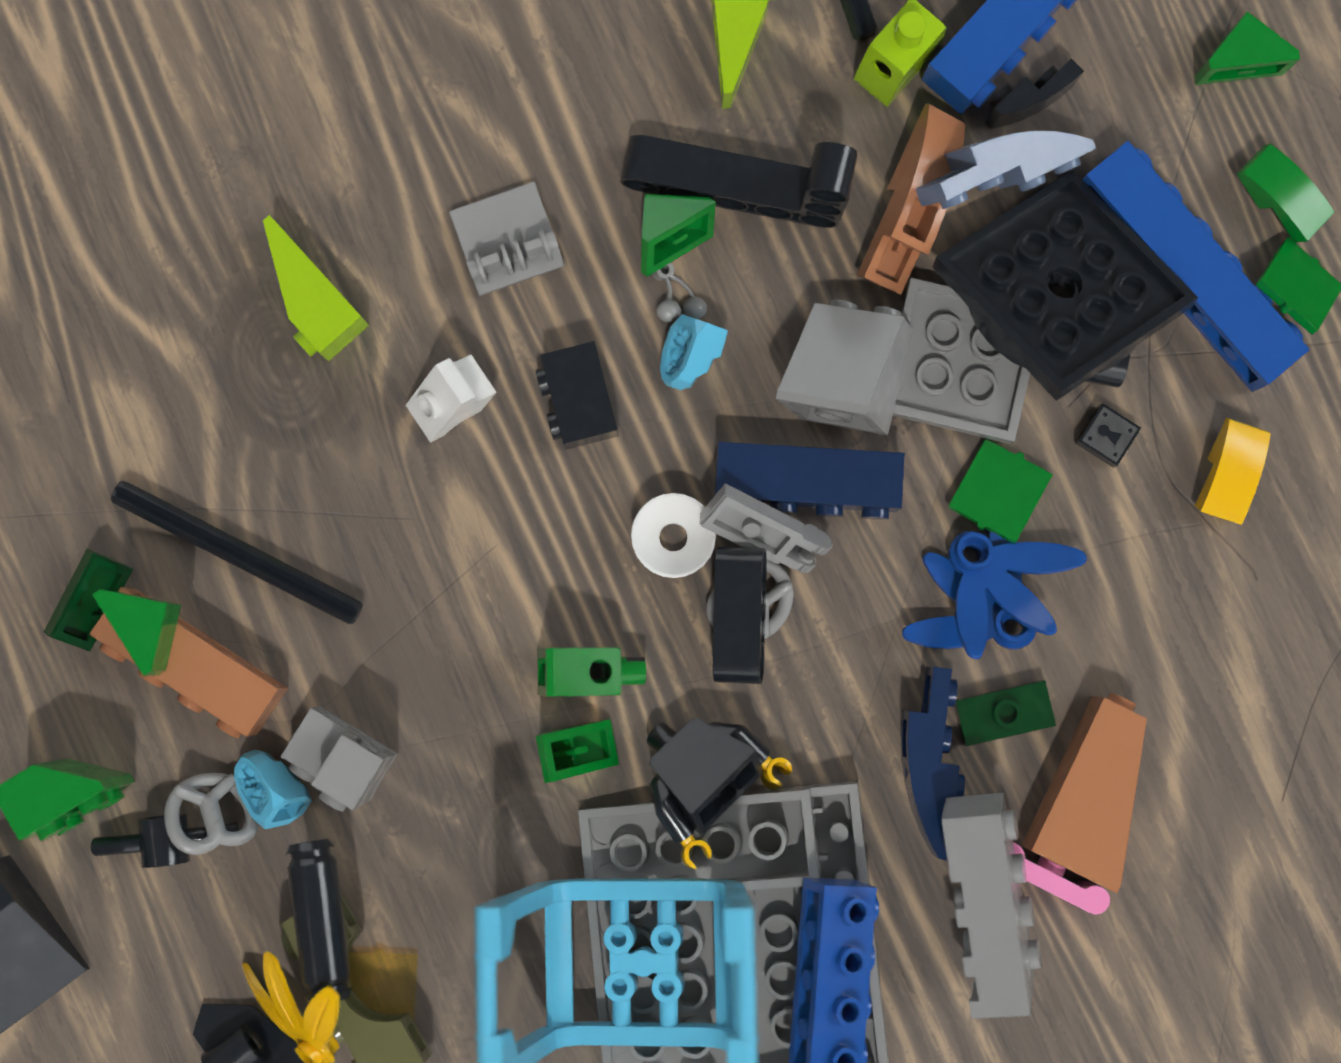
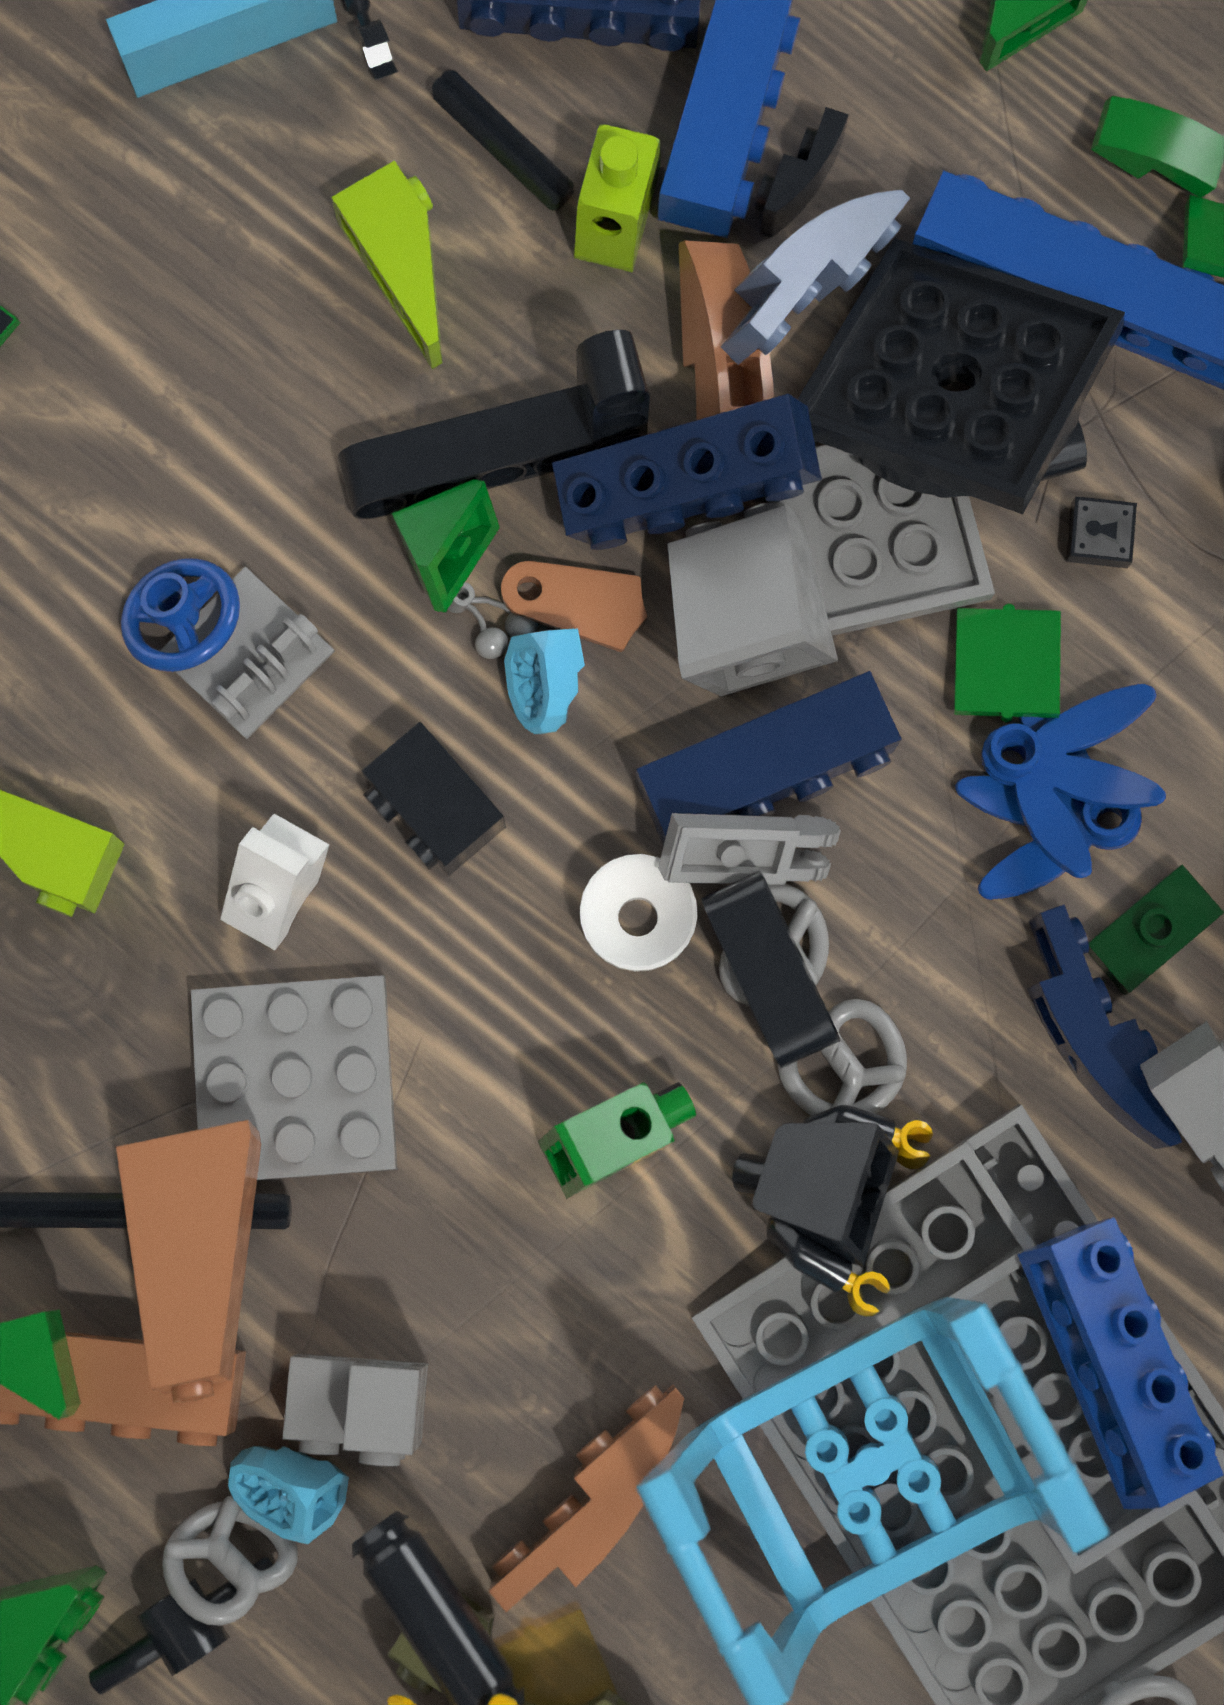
camera: 25 degrees left, 5 degrees down
(279, 607) = (189, 1245): none -> nougat slope
(401, 531) = (303, 1069): none -> light grey plate
(446, 909) = (588, 1530): none -> nougat slope
(475, 185) = (171, 602): none -> blue piece
(576, 750) = (654, 1241): green slope -> none
(745, 314) = (597, 602): none -> nougat piece
(760, 705) = (849, 1069): none -> light grey piece
(852, 262) = (688, 472): none -> dark blue brick

